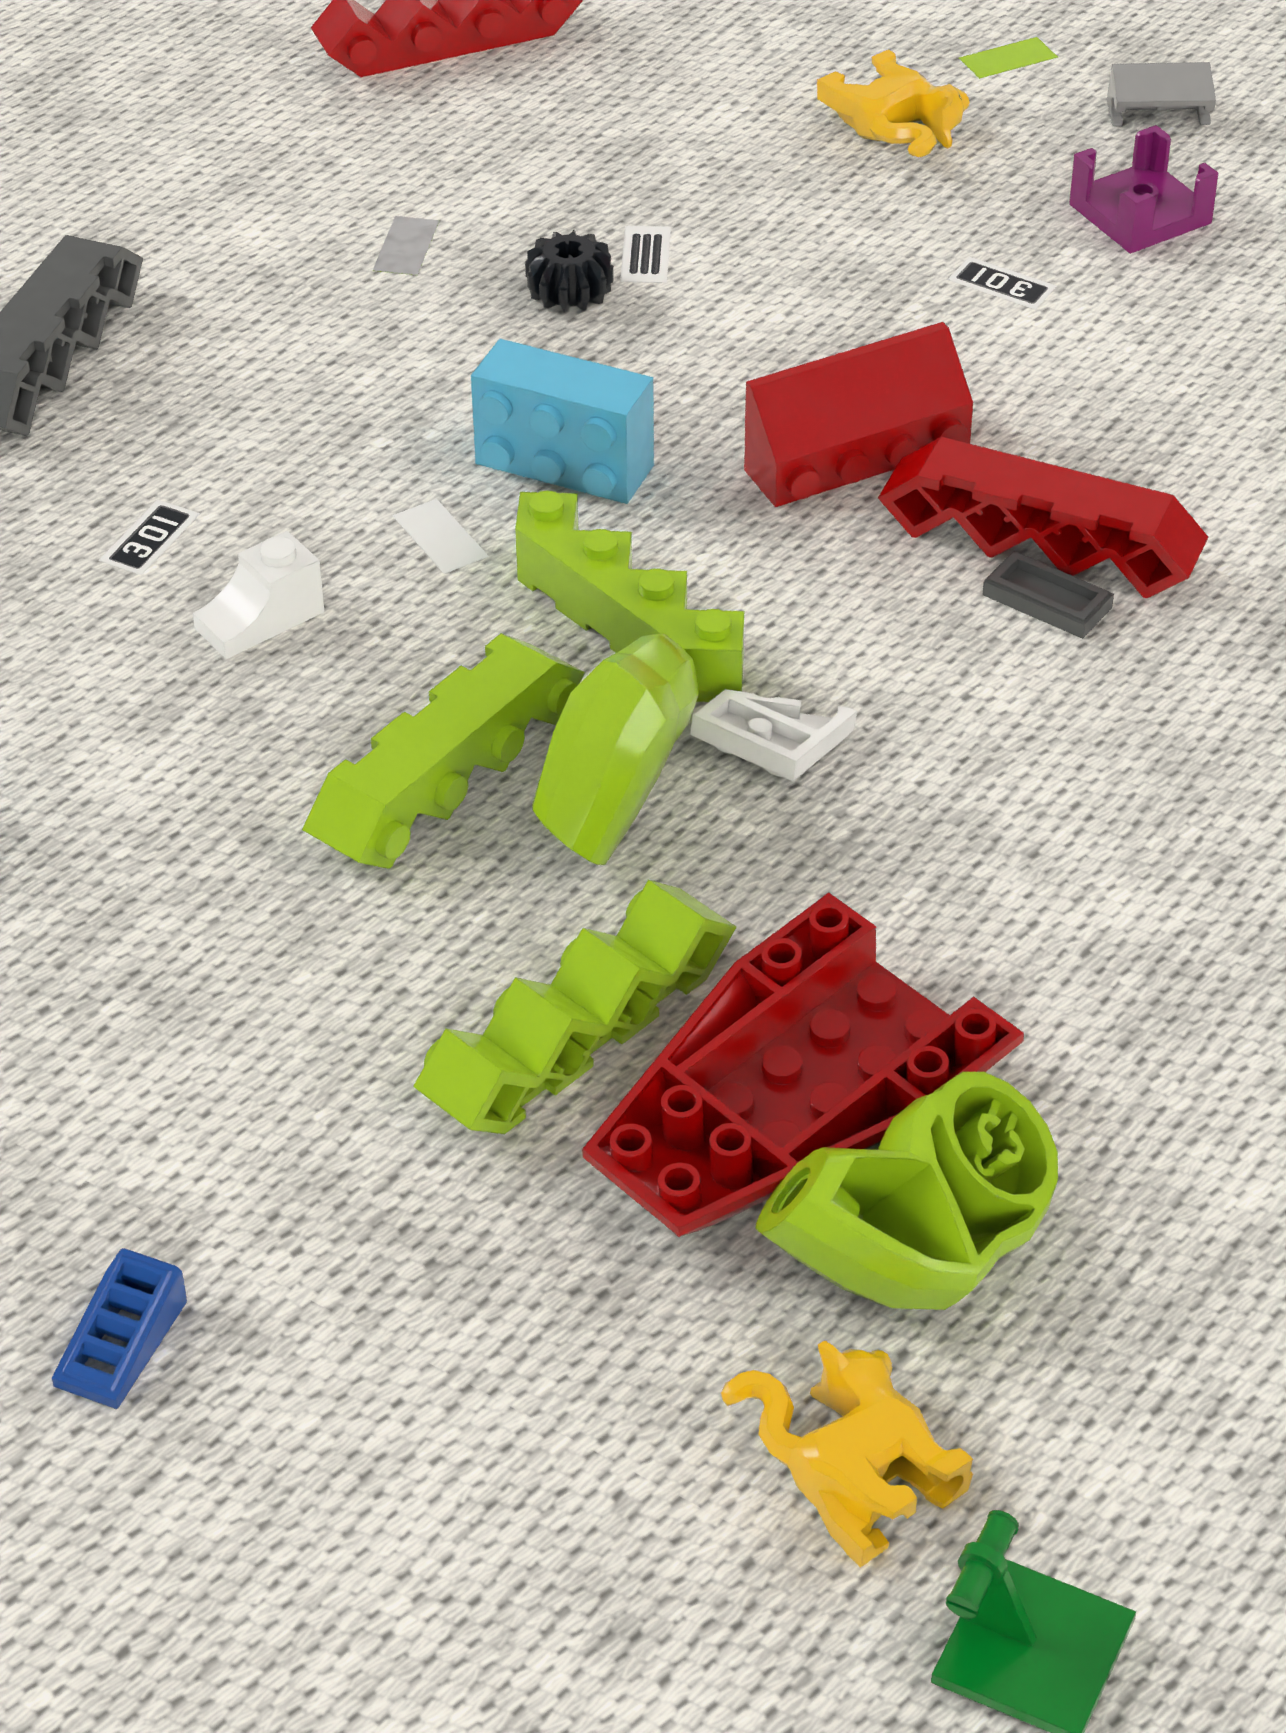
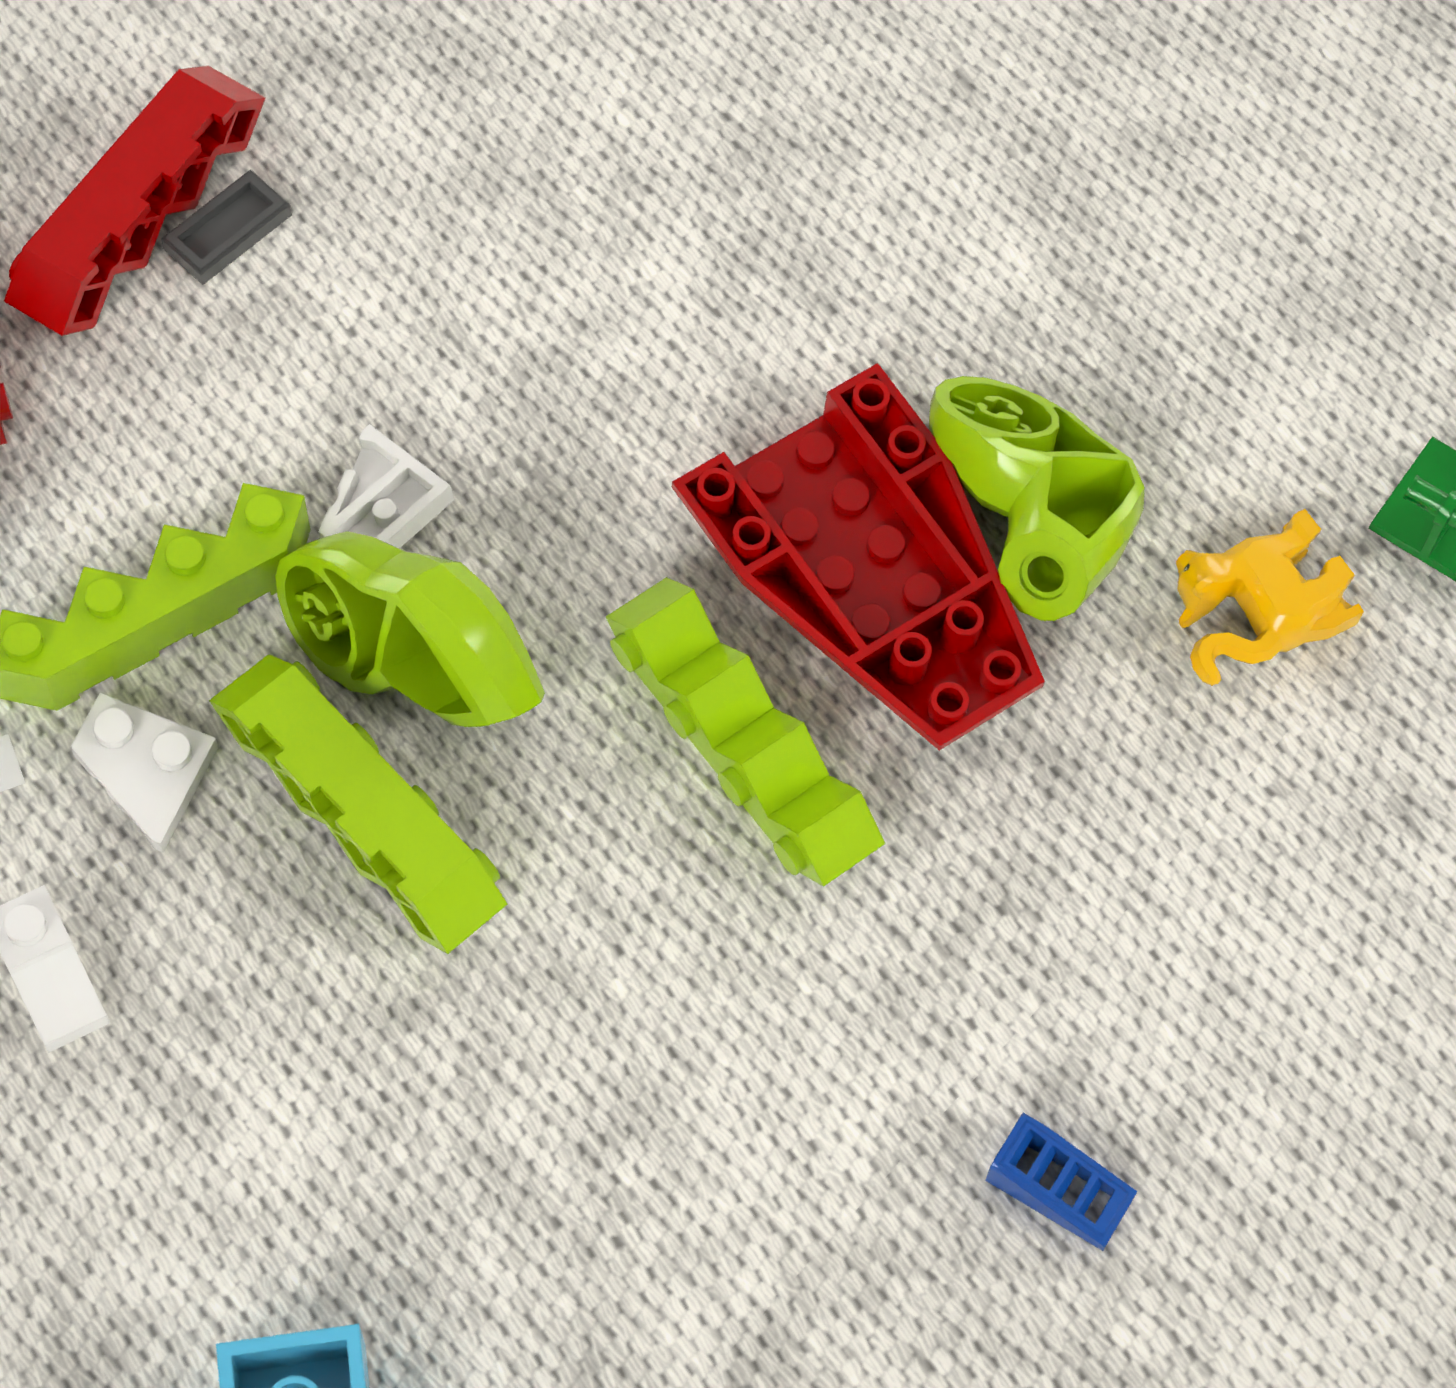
camera: 85 degrees left, 20 degrees up
(463, 627) = (144, 763): none -> white wing

